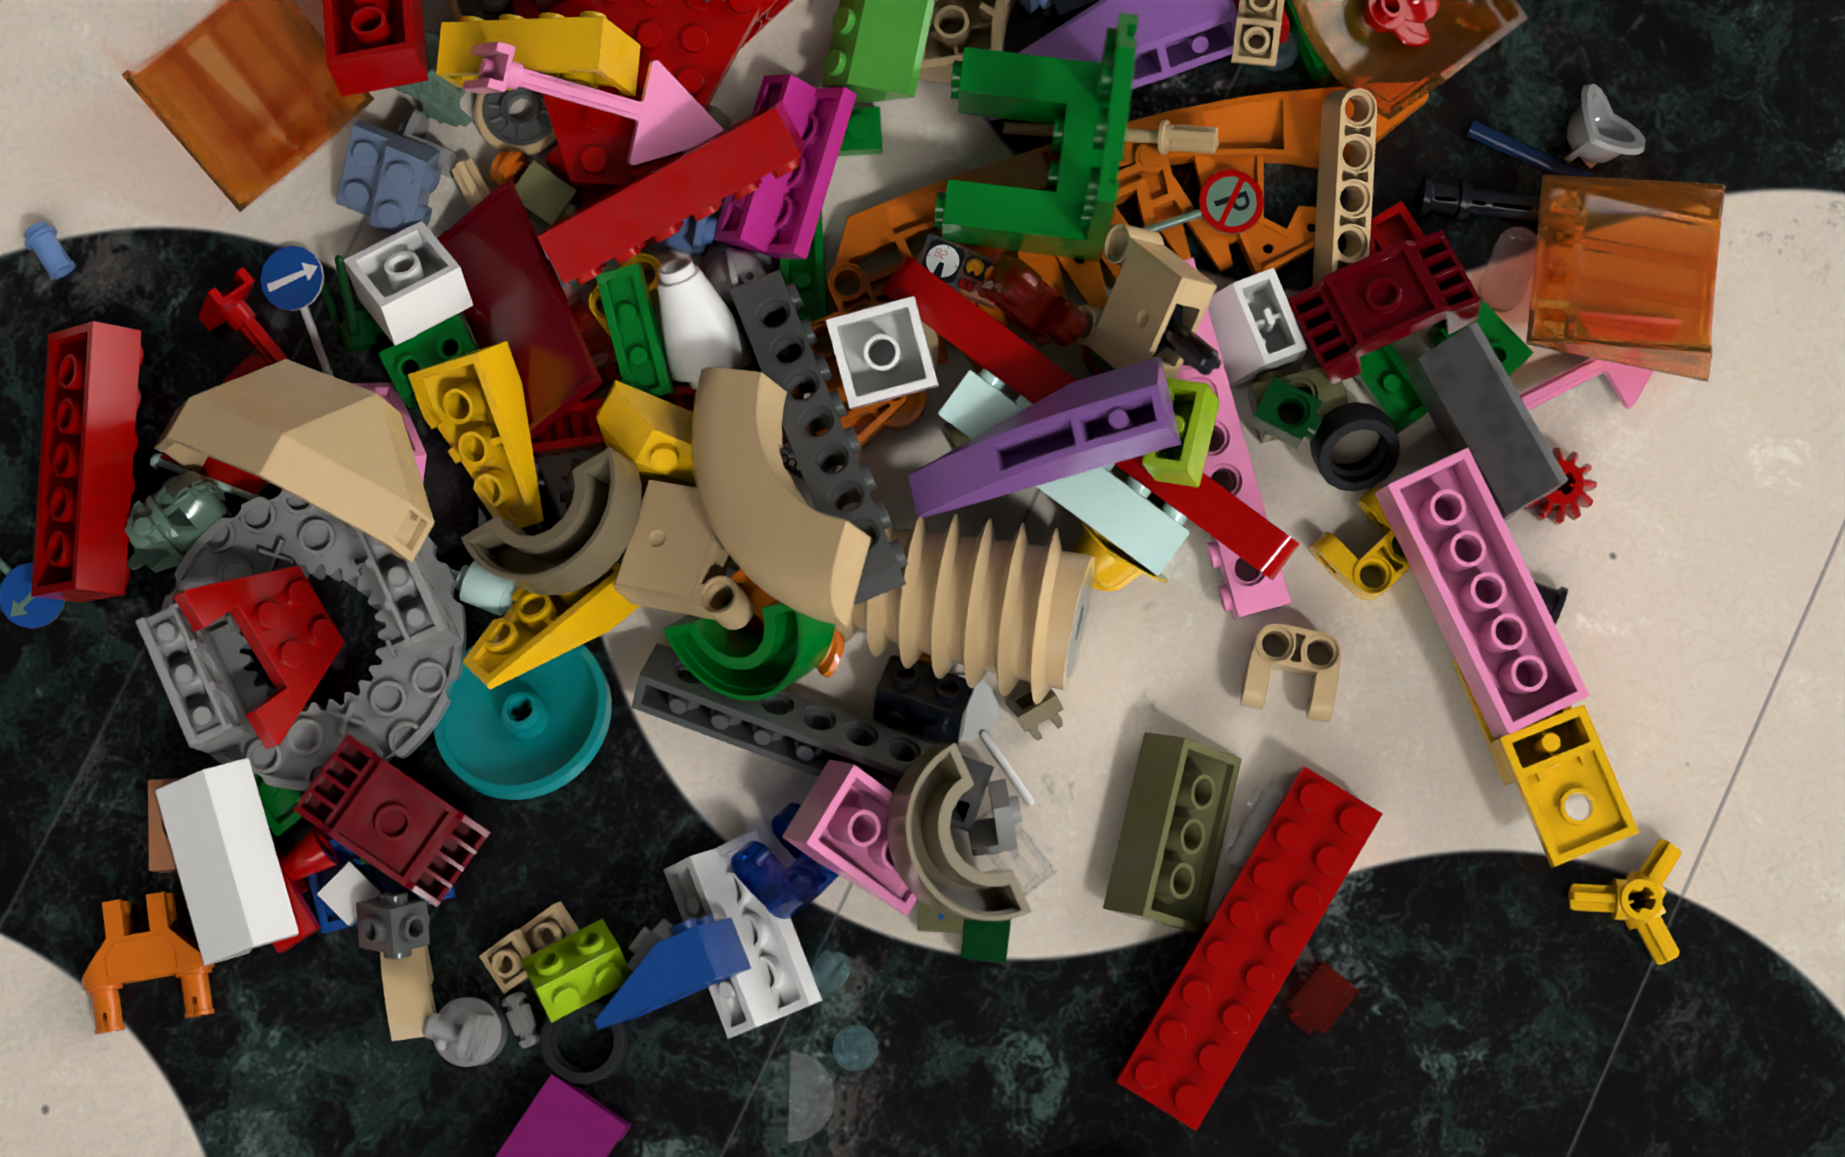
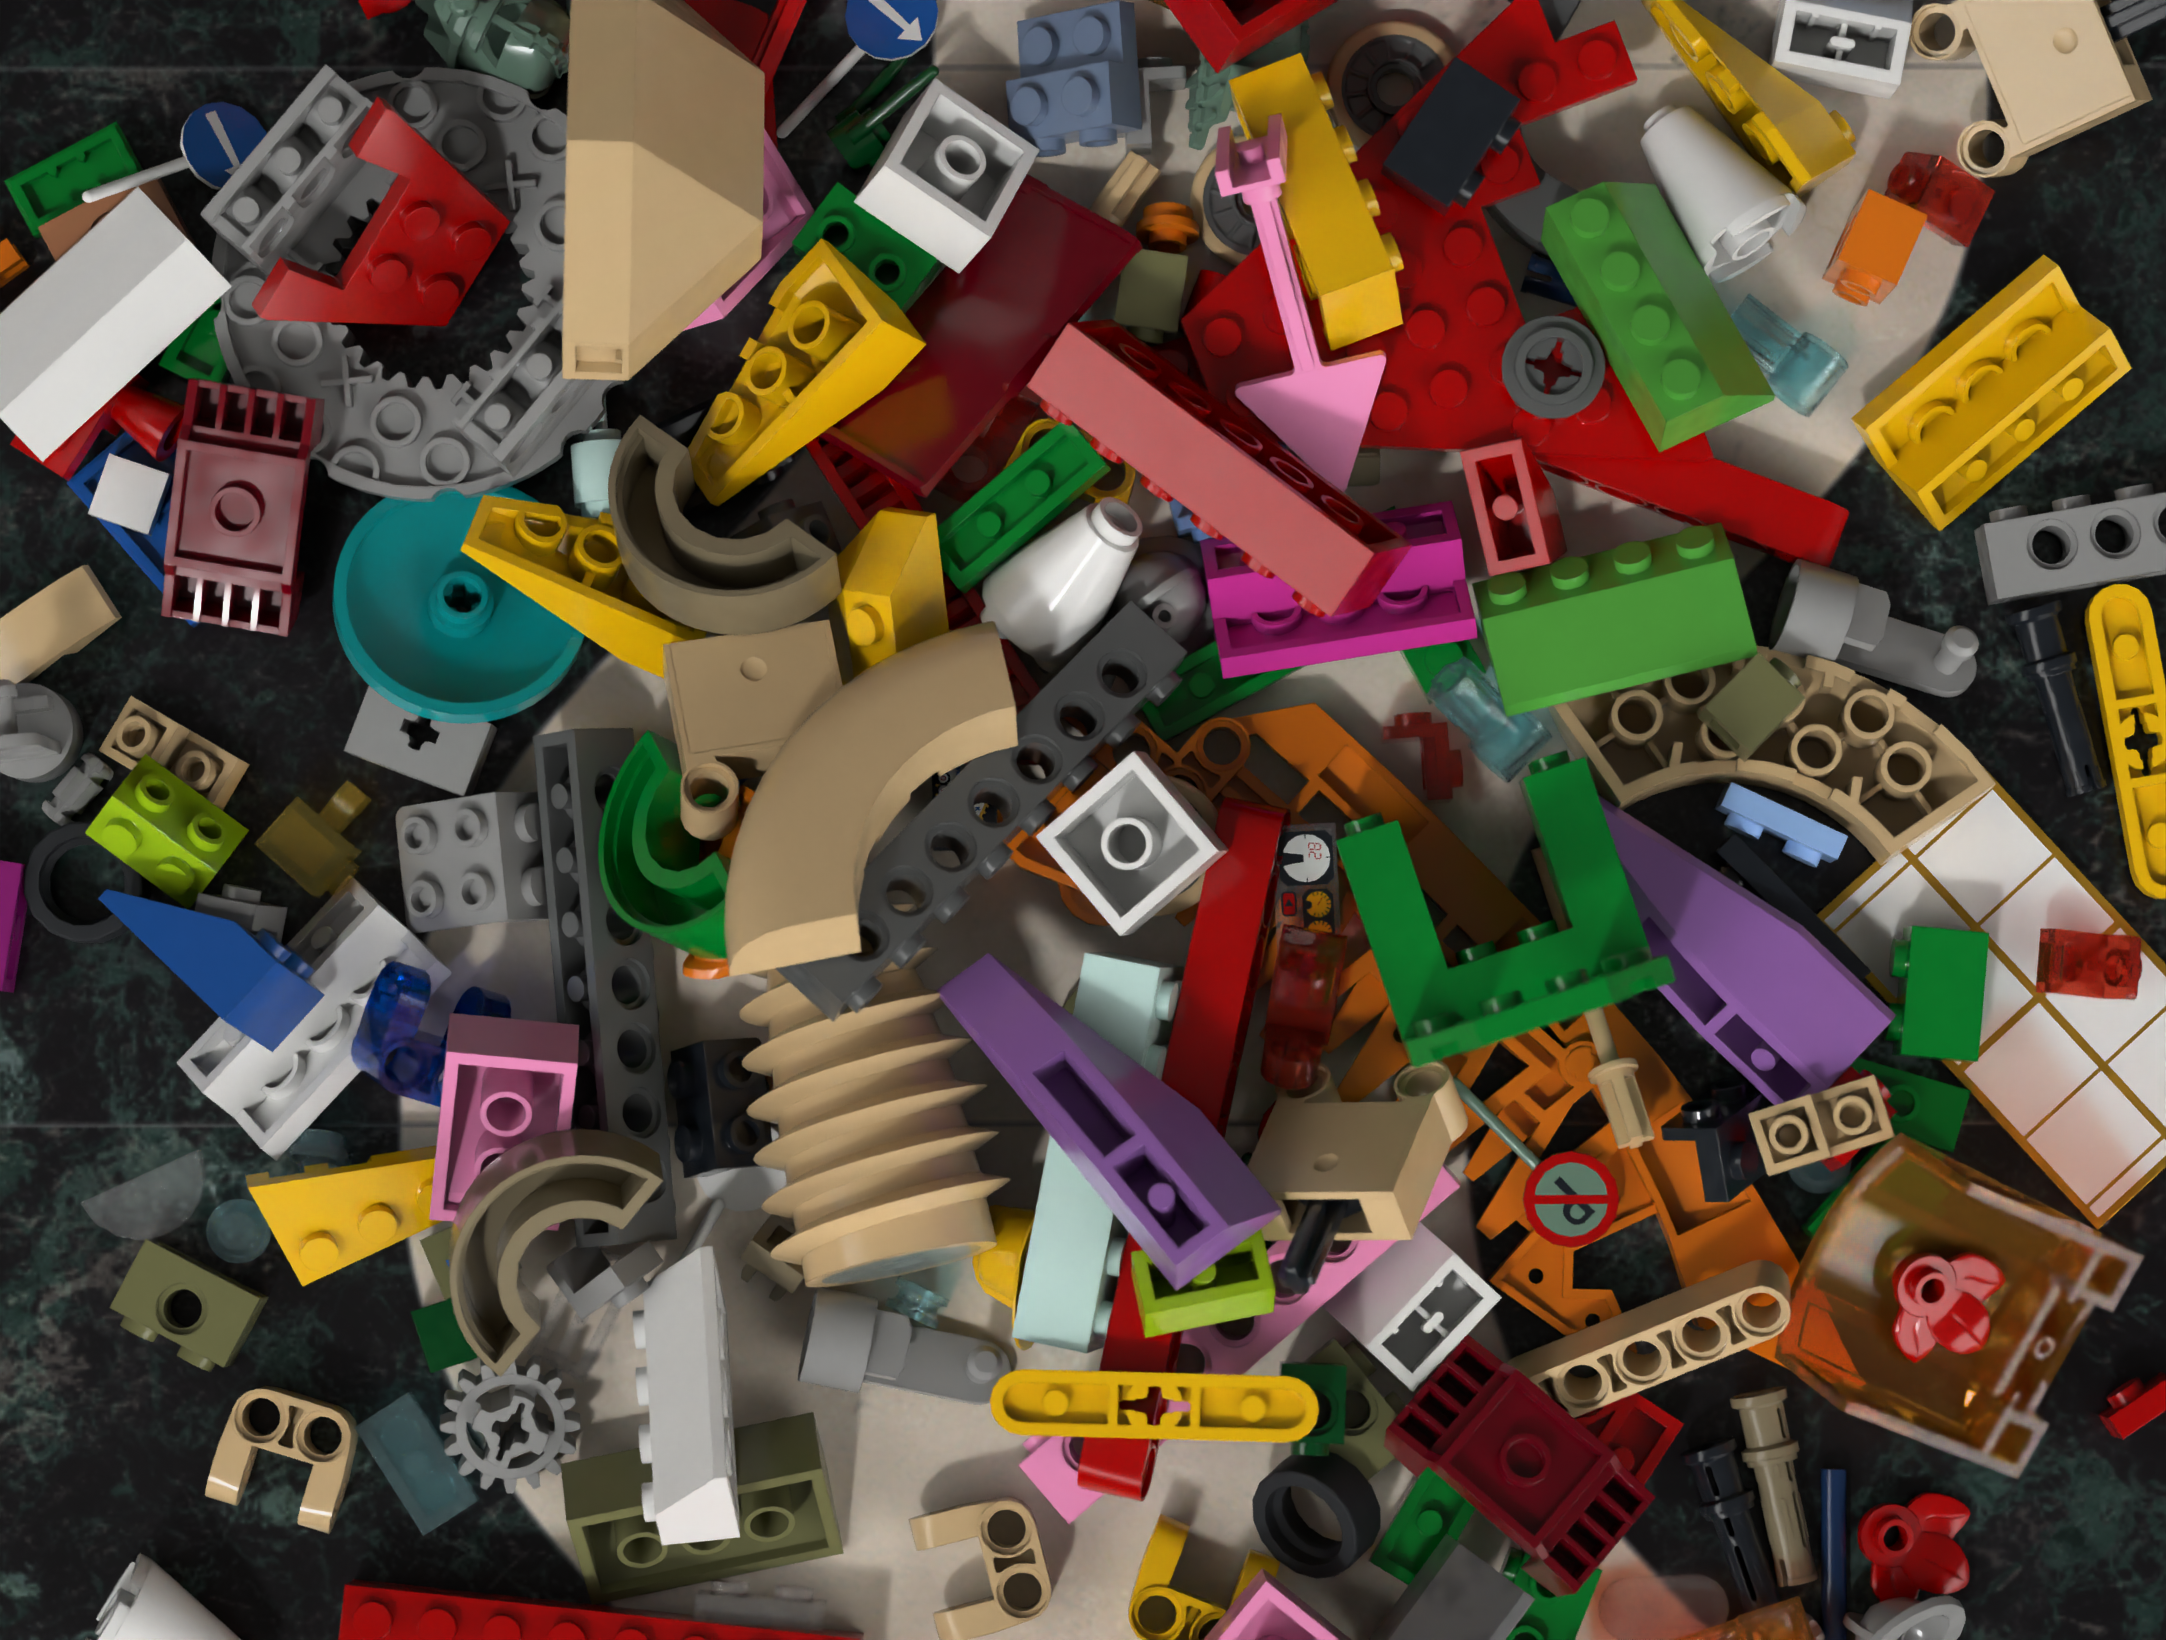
camera: 60 degrees right, 5 degrees up
(129, 836) = (60, 180): none -> green plate
(155, 734) = (212, 146): none -> blue piece
(393, 924) = (114, 570): dark grey brick -> none
(621, 776) = (450, 764): none -> light grey brick
(630, 882) = (312, 843): none -> clear yellow brick
(691, 785) = (472, 861): none -> light grey bracket
(784, 37) = (1513, 506): none -> red slope
(860, 1112) = (226, 1313): none -> olive brick
(877, 969) = (346, 1212): none -> yellow wing
(908, 117) = (1477, 711): none -> clear light blue piece
(922, 160) = (1439, 766): none -> clear red bracket
(1005, 1076) = (292, 1439): none -> tan piece
(1059, 1002) = (416, 1463): none -> clear light blue plate
(1075, 917) = (532, 1434): none -> light grey gear
(1103, 801) = (688, 1403): none -> white slope
(1105, 636) = (917, 1302): none -> clear light blue bush
(1113, 685) = (856, 1343): none -> light grey piece
(1236, 83) = (1723, 1136): none -> black bracket
(1264, 462) = (1088, 1405): none -> yellow piece
(1445, 159) = (1772, 1456): none -> dark tan pin
(1544, 97) = (1924, 1550): none -> red plate

